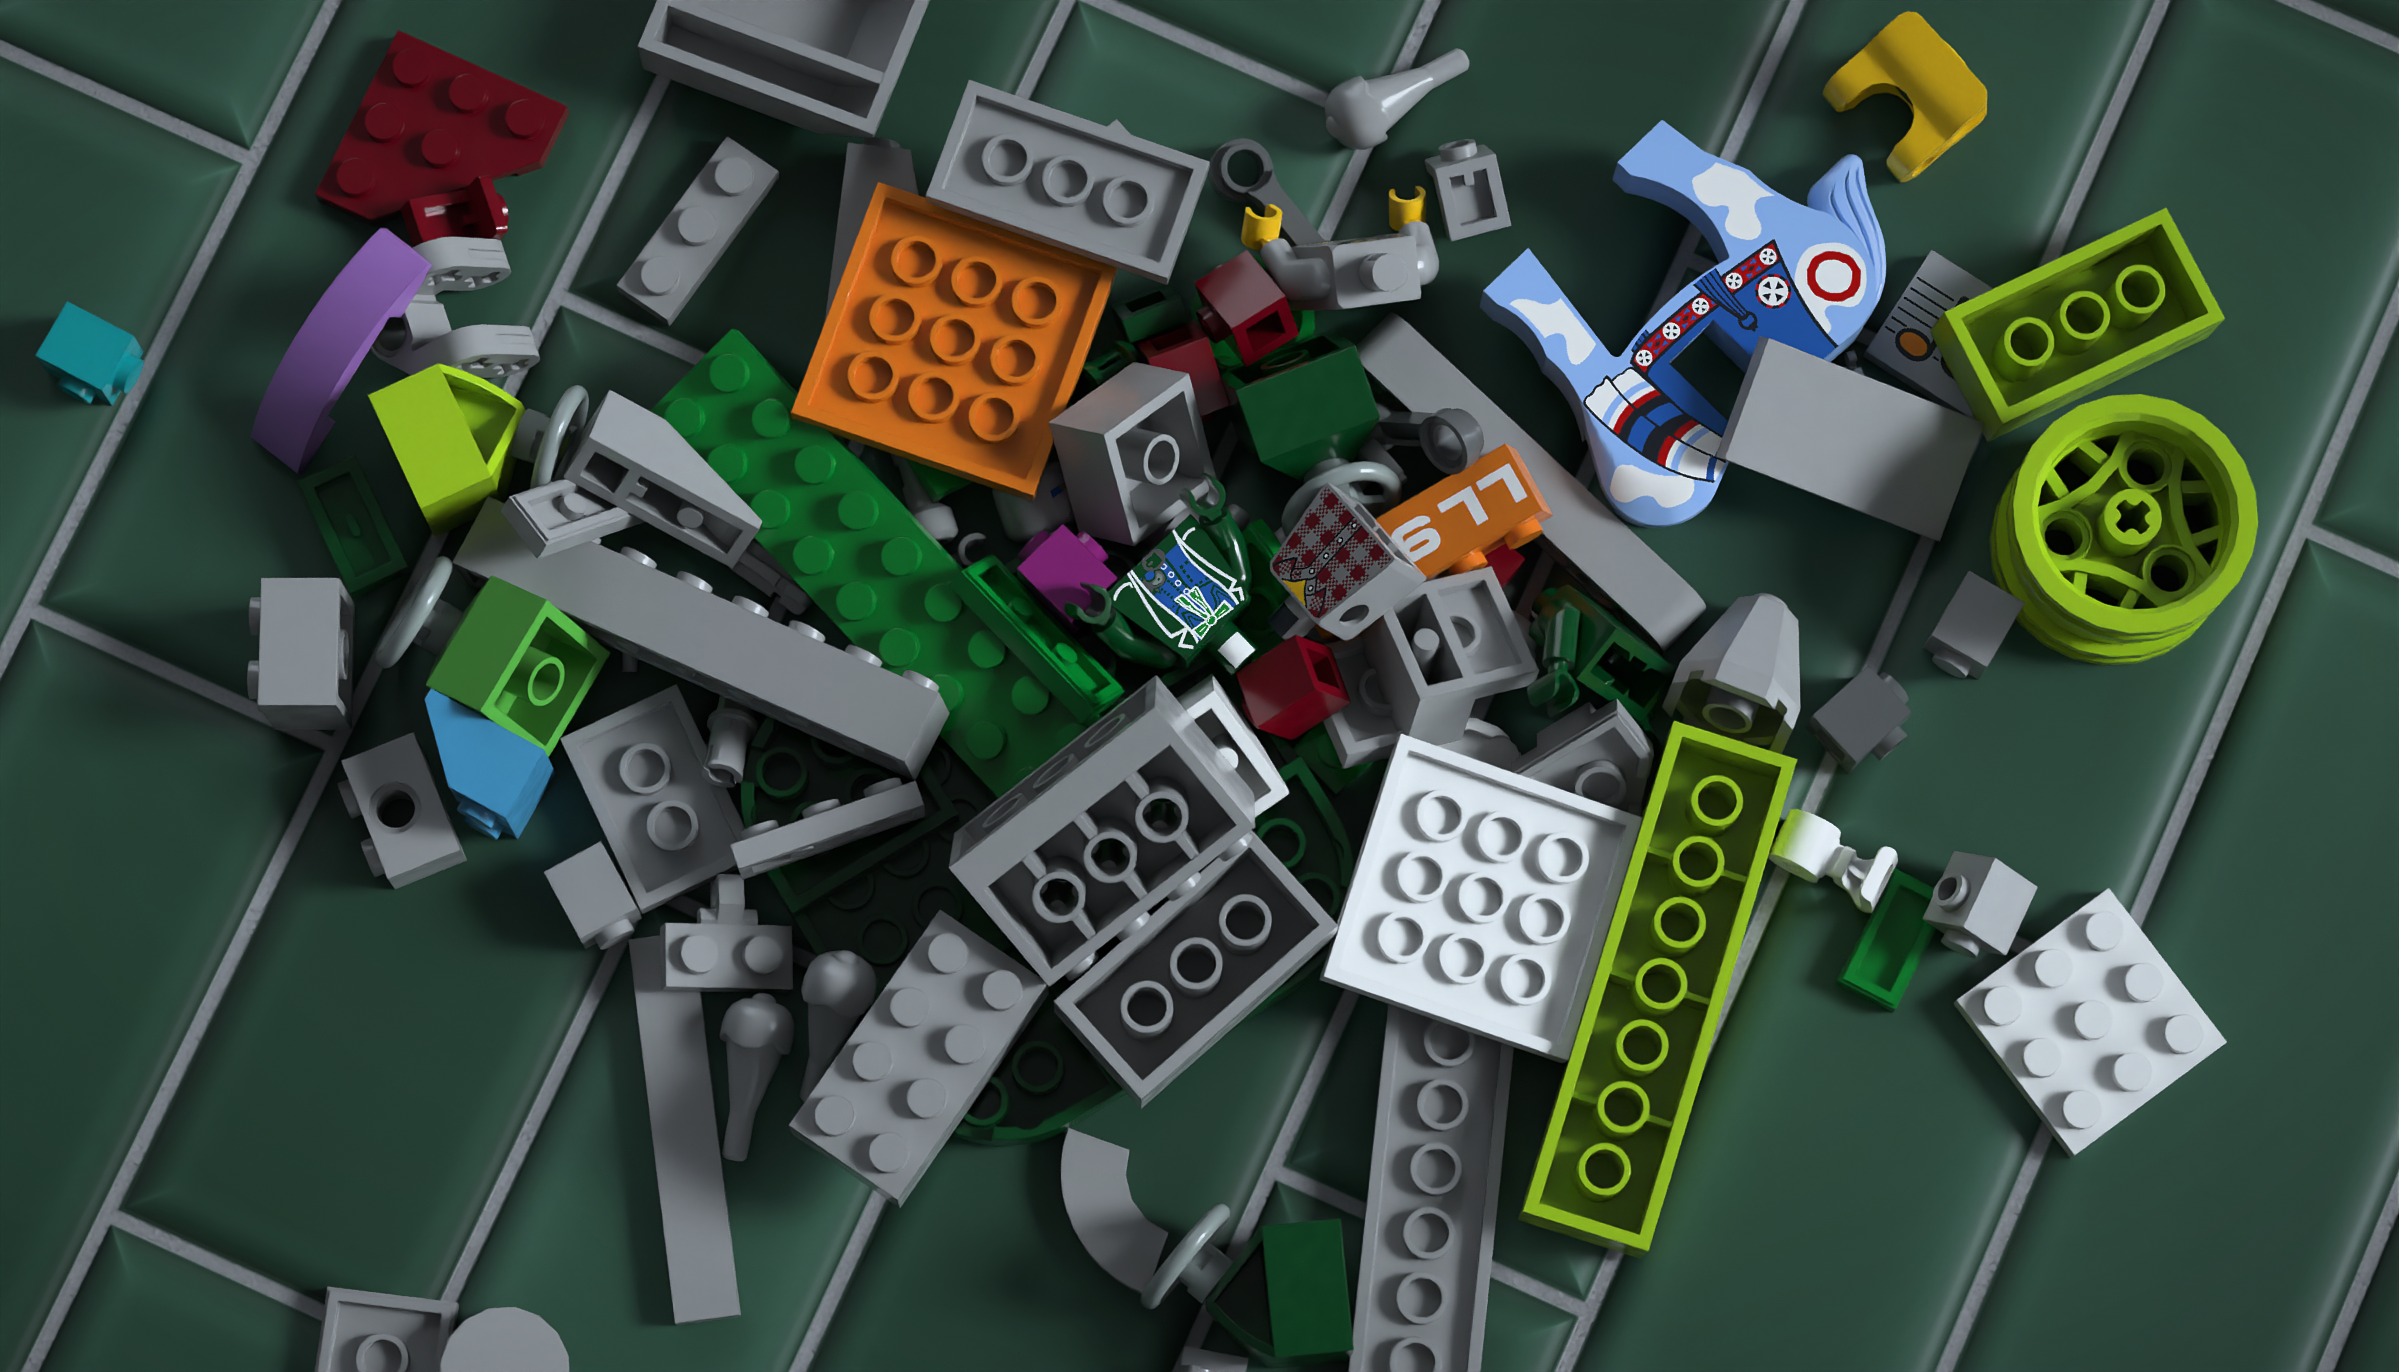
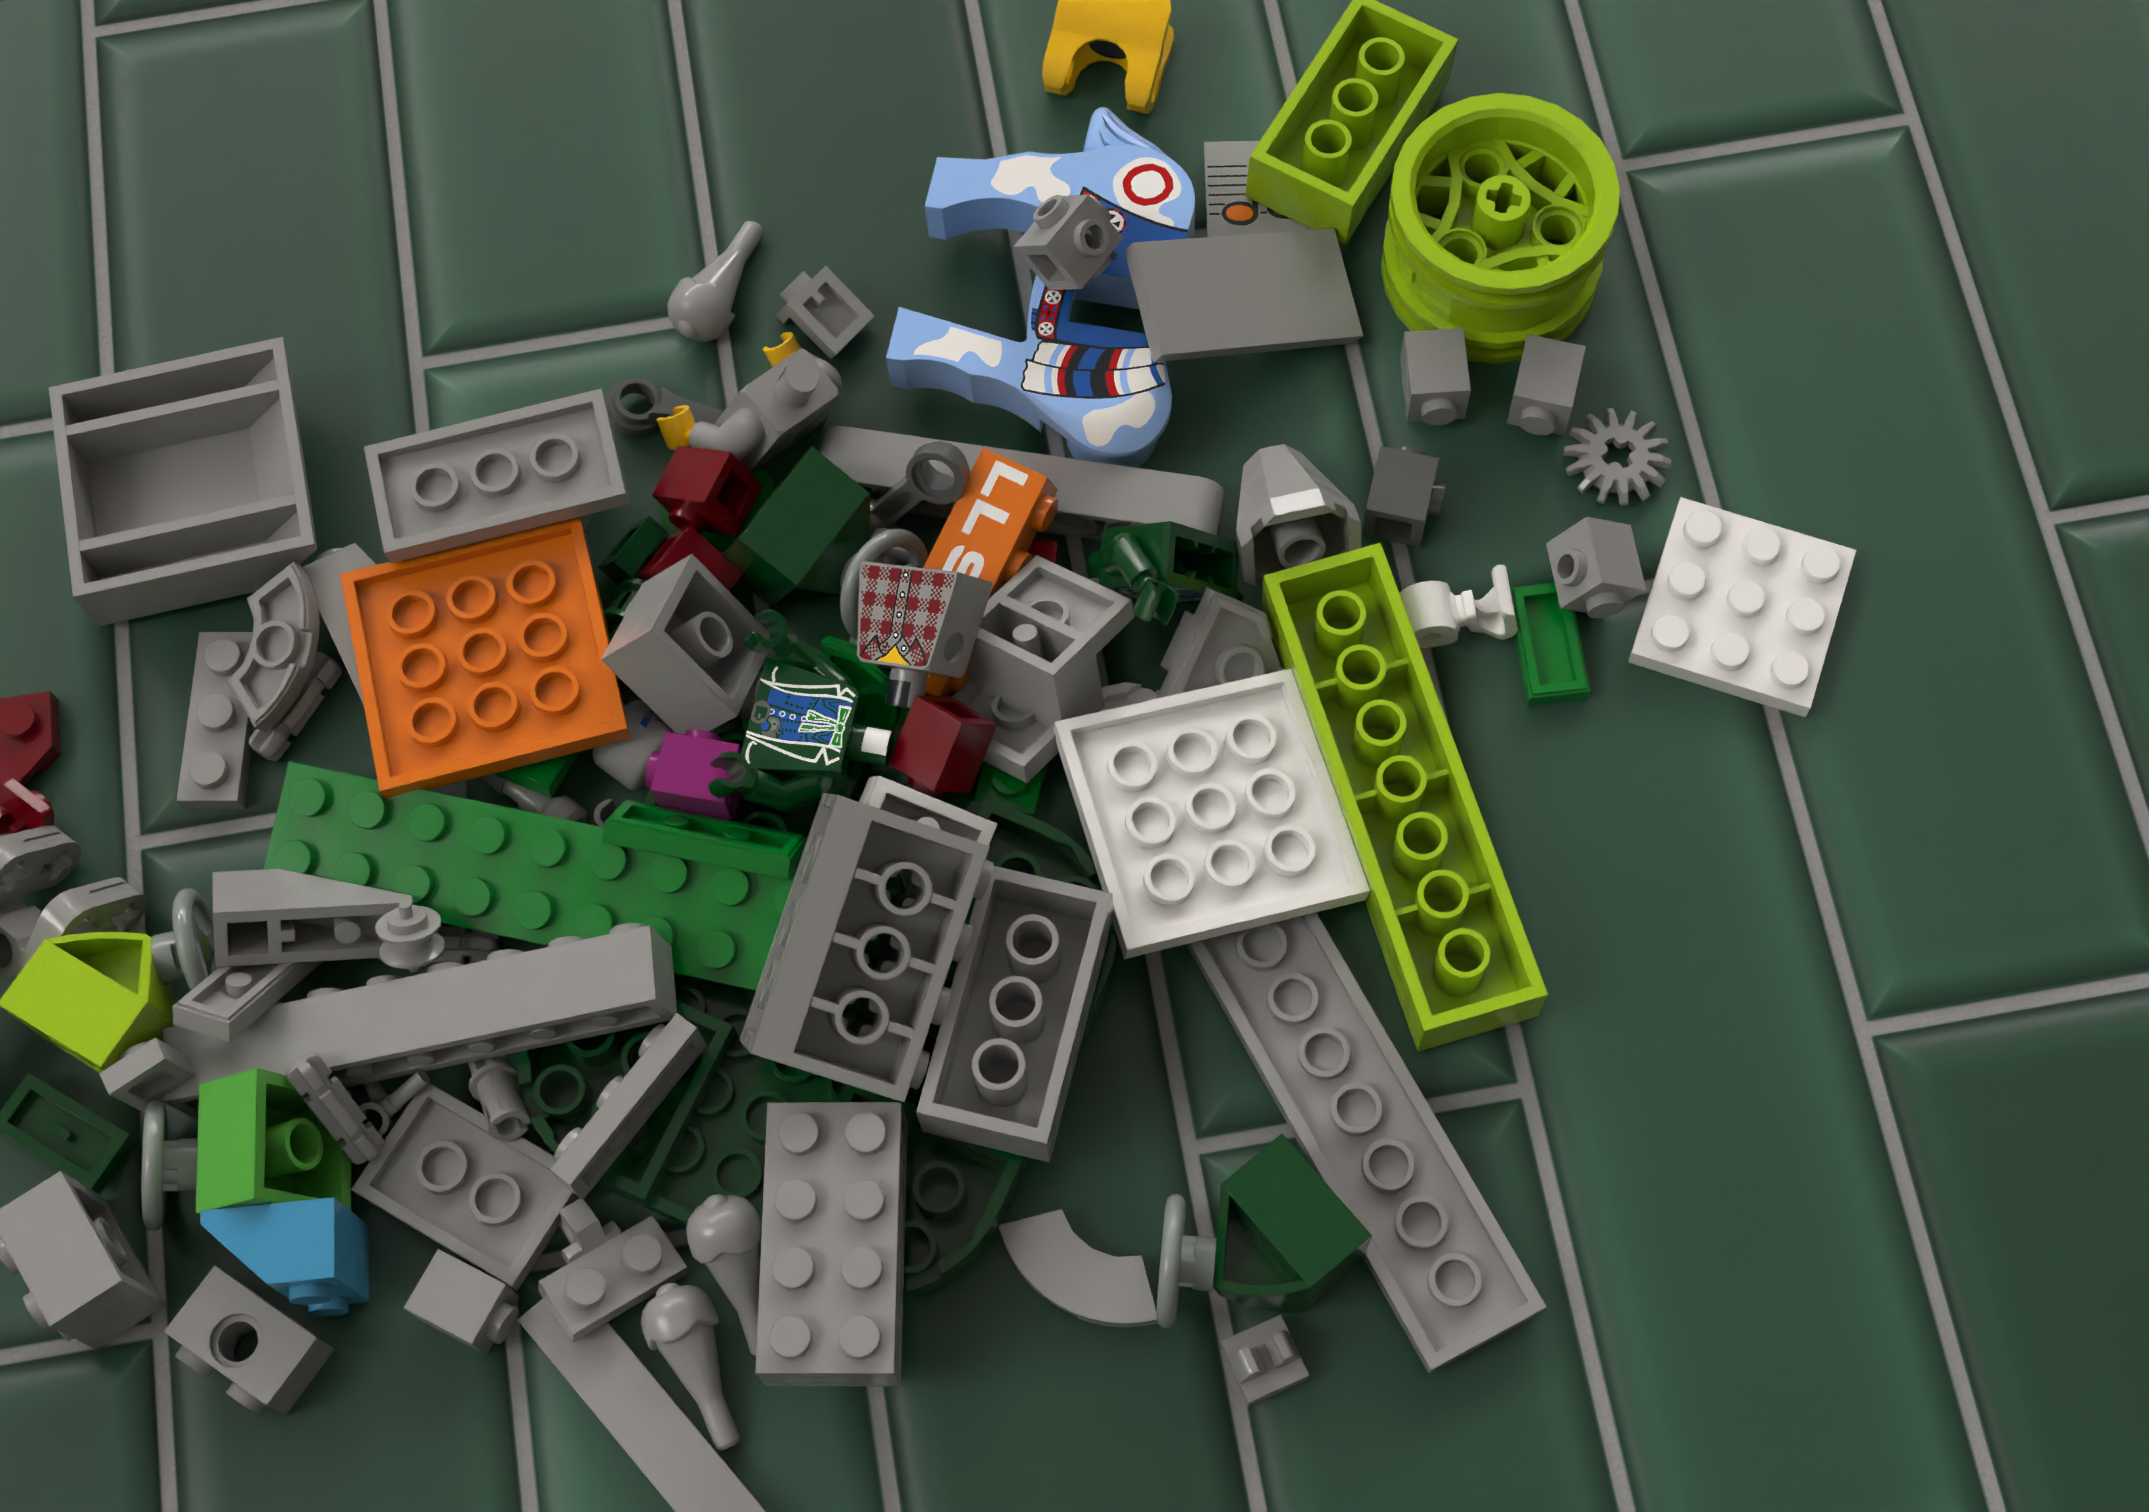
camera: 25 degrees left, 10 degrees down
(454, 533) = (146, 1073): none -> light grey plate
(588, 666) = (335, 1108): none -> light grey axle
(637, 686) = (393, 1102): none -> light grey hand
(738, 559) = (410, 937): none -> light grey wheel
(768, 262) = (274, 742): none -> light grey axle
(788, 207) = (280, 648): none -> light grey tile
(1715, 296) = (1069, 241): none -> light grey brick
(2061, 705) = (1546, 385): none -> light grey brick
(2066, 827) = (1613, 477): none -> light grey gear

